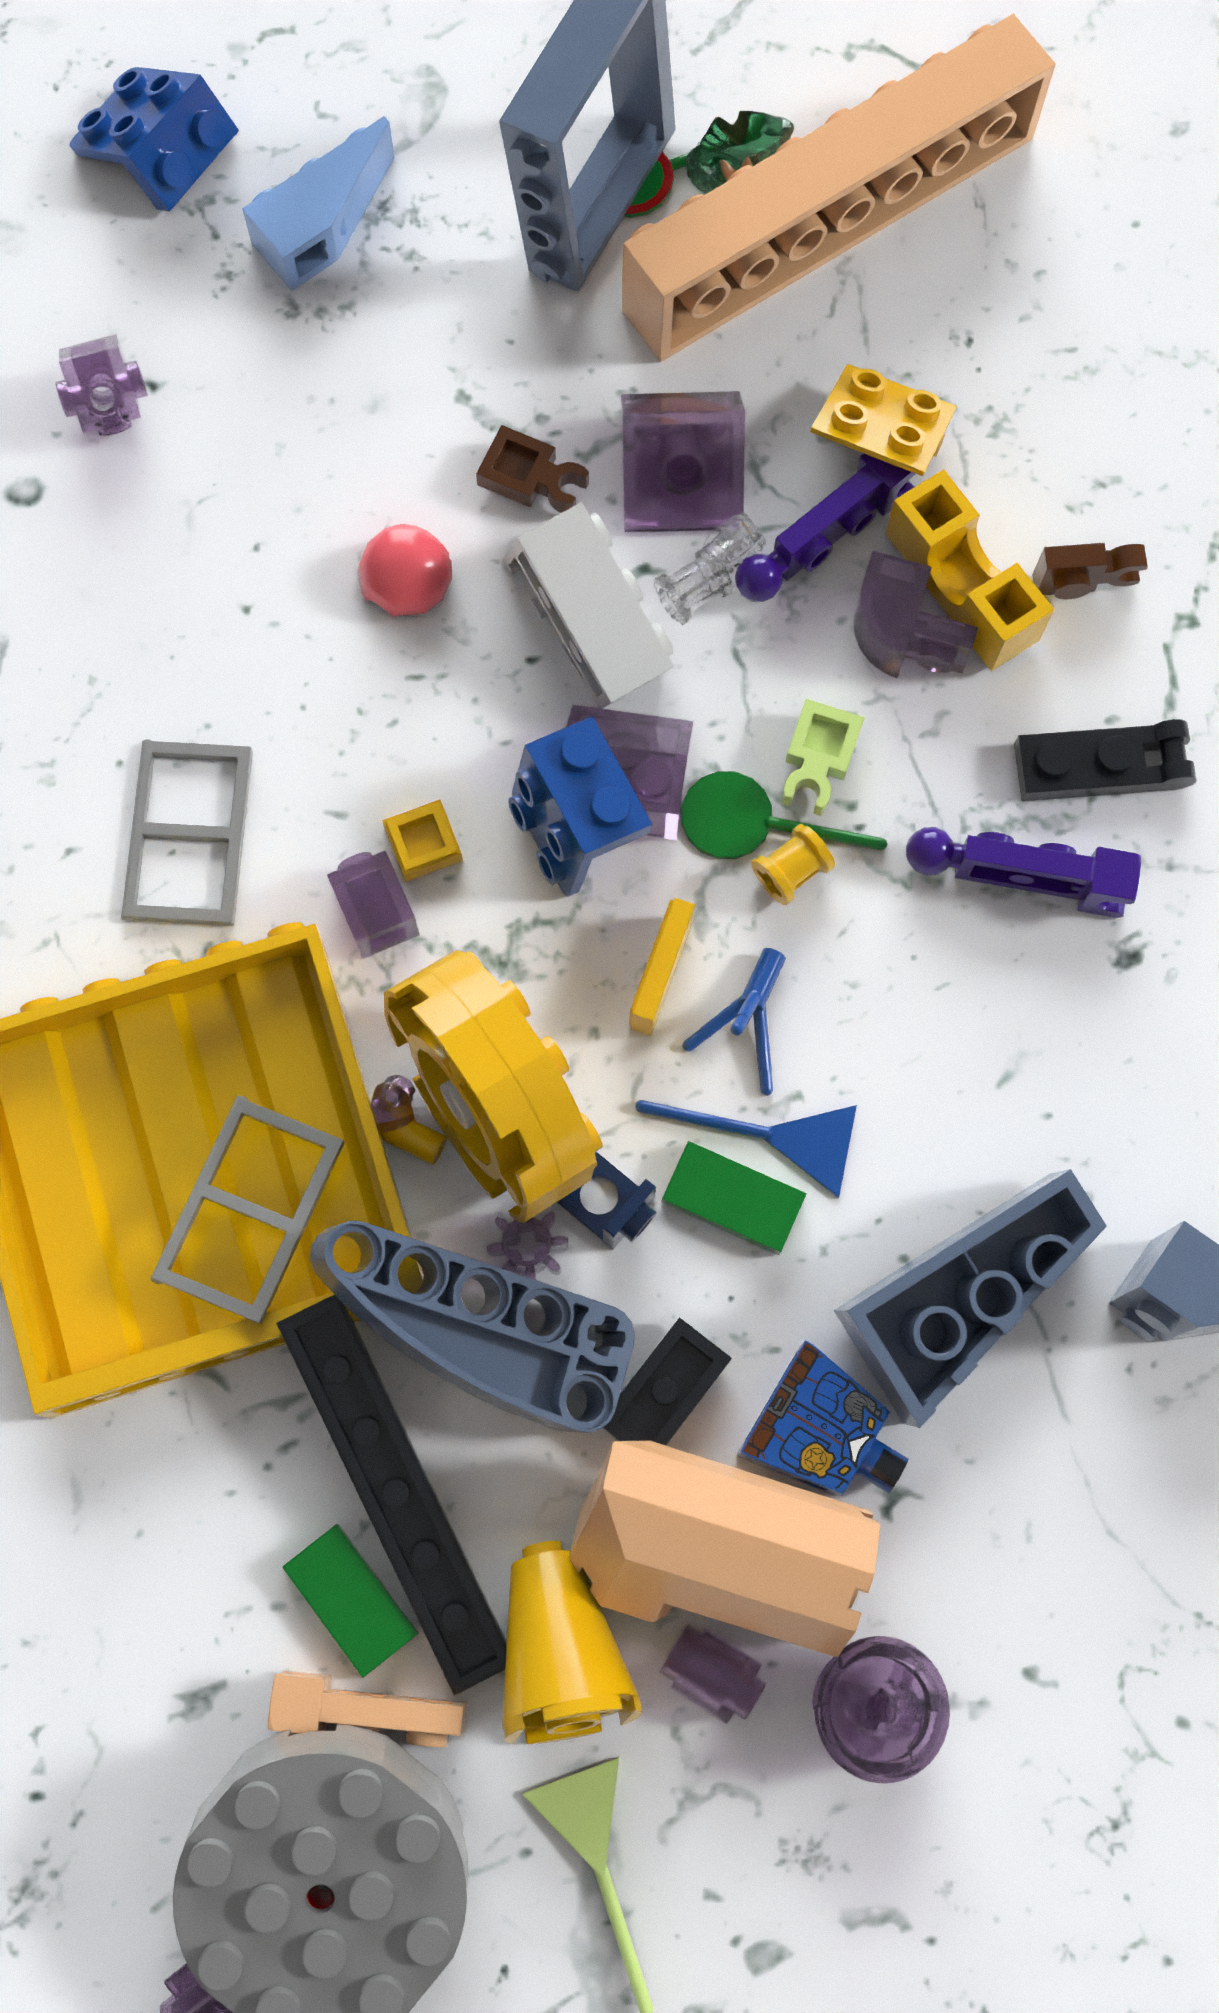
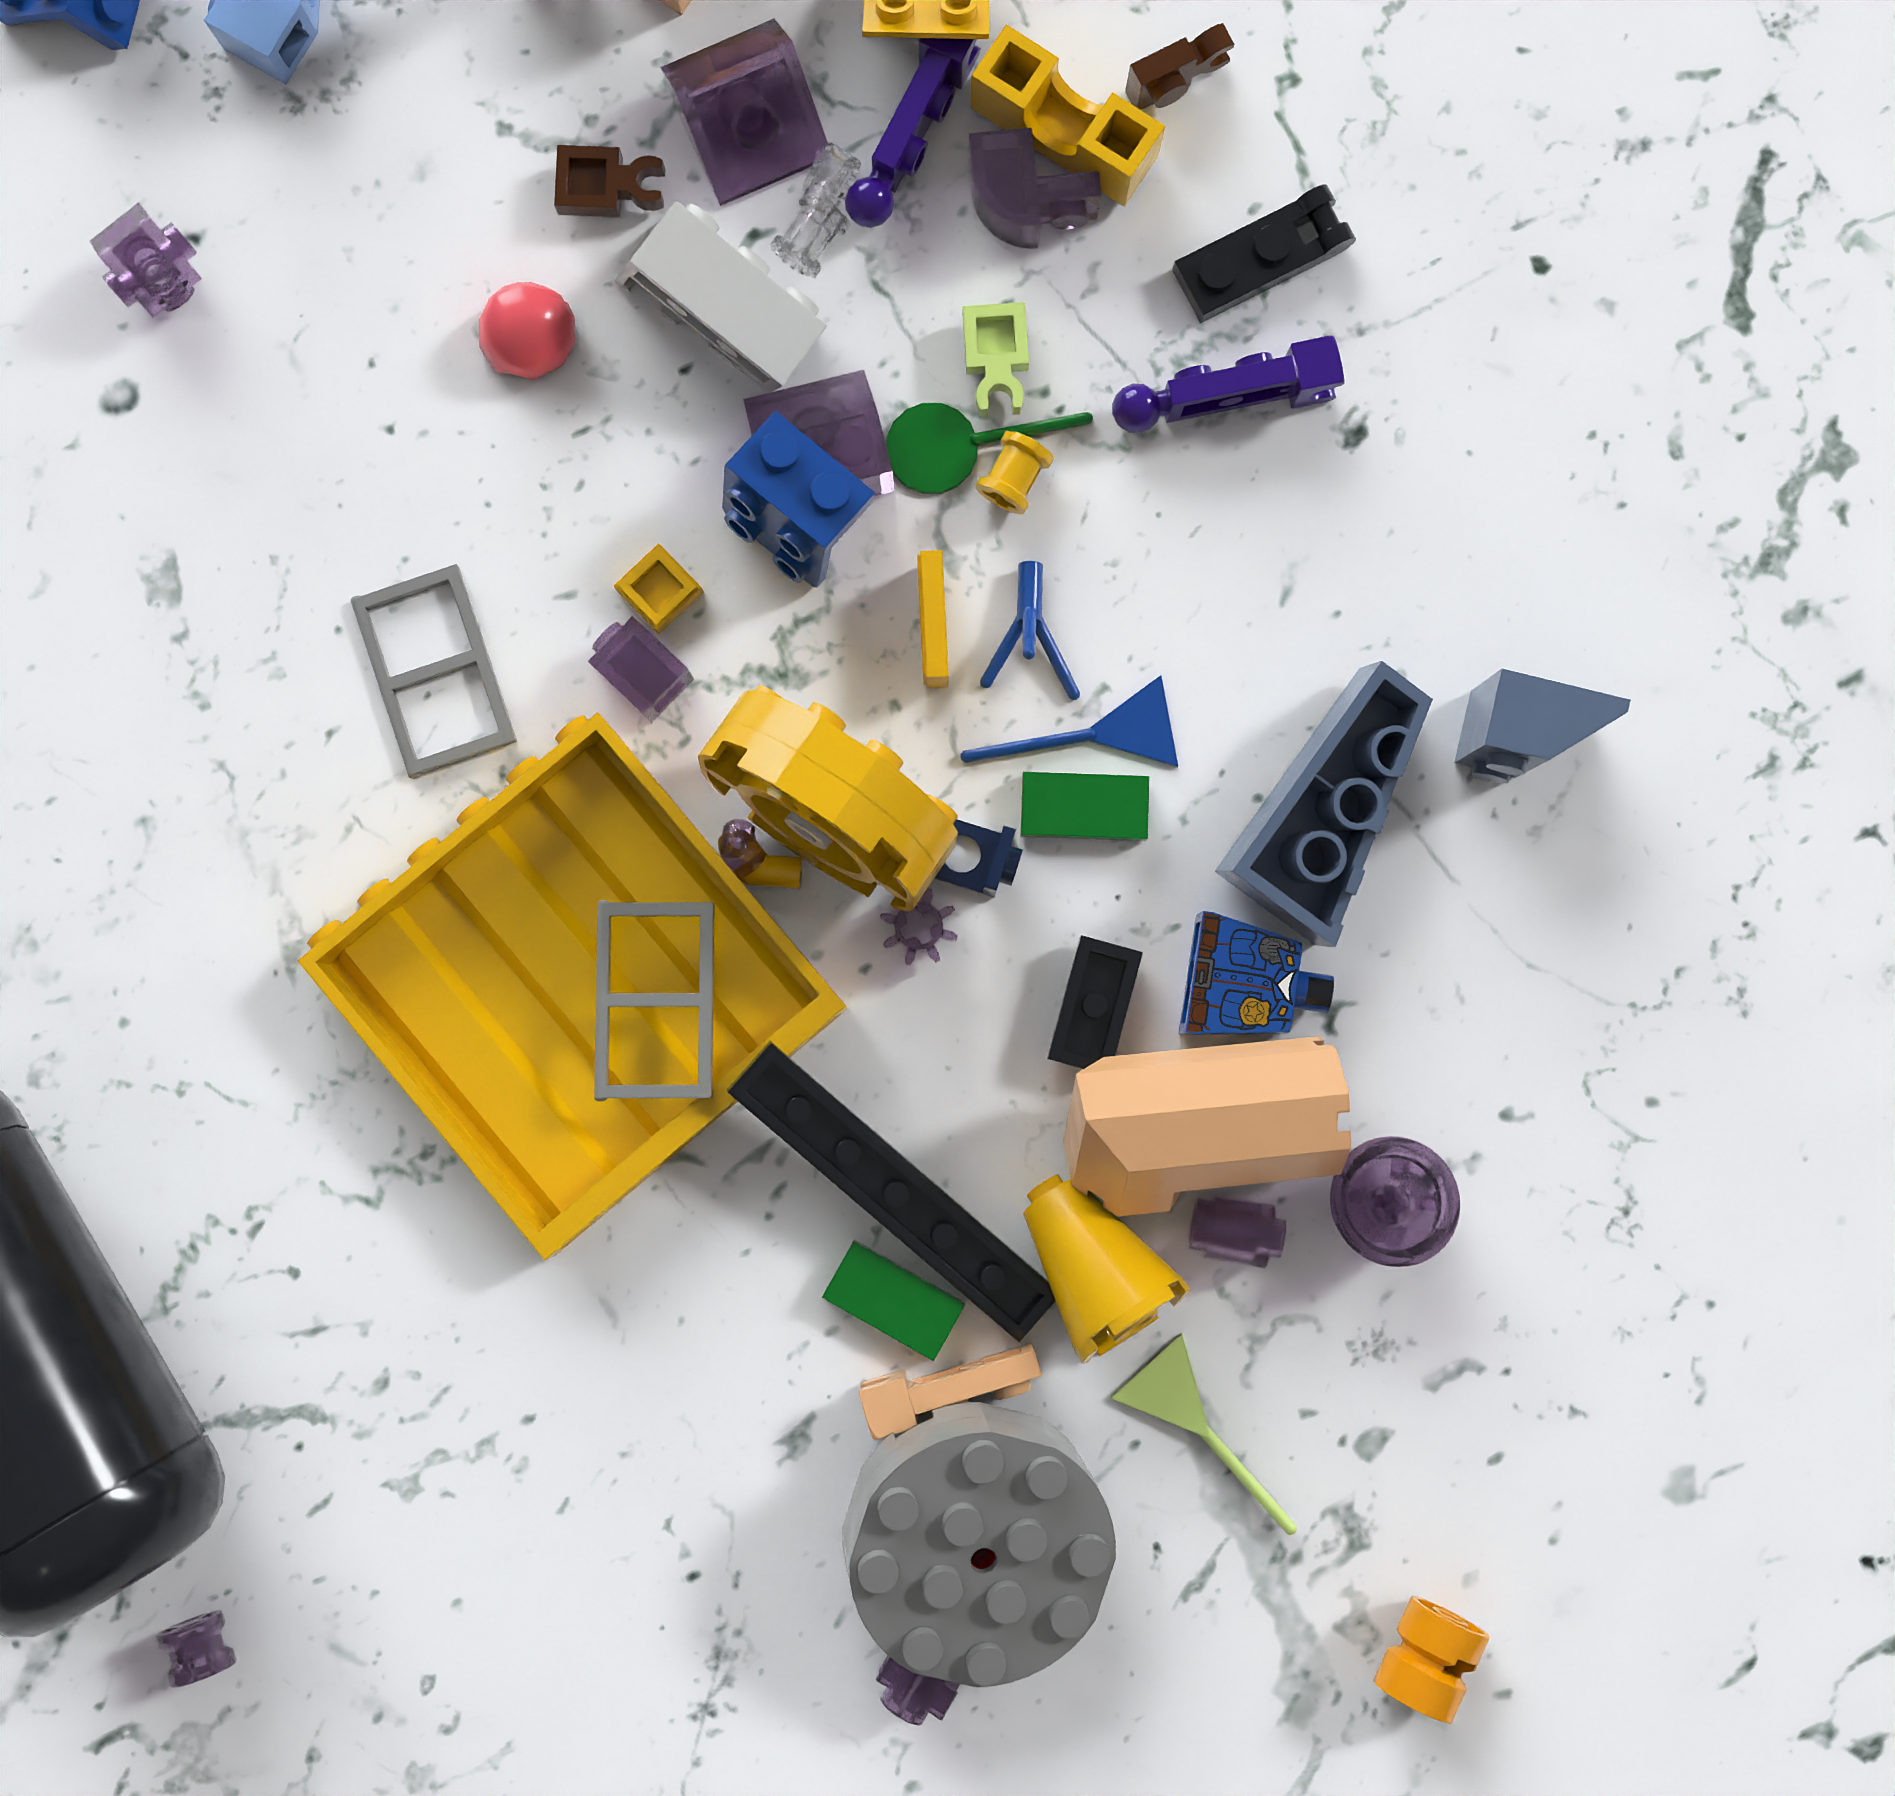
camera: 25 degrees left, 10 degrees up
(490, 1351) = (928, 1033): sand blue beam -> none

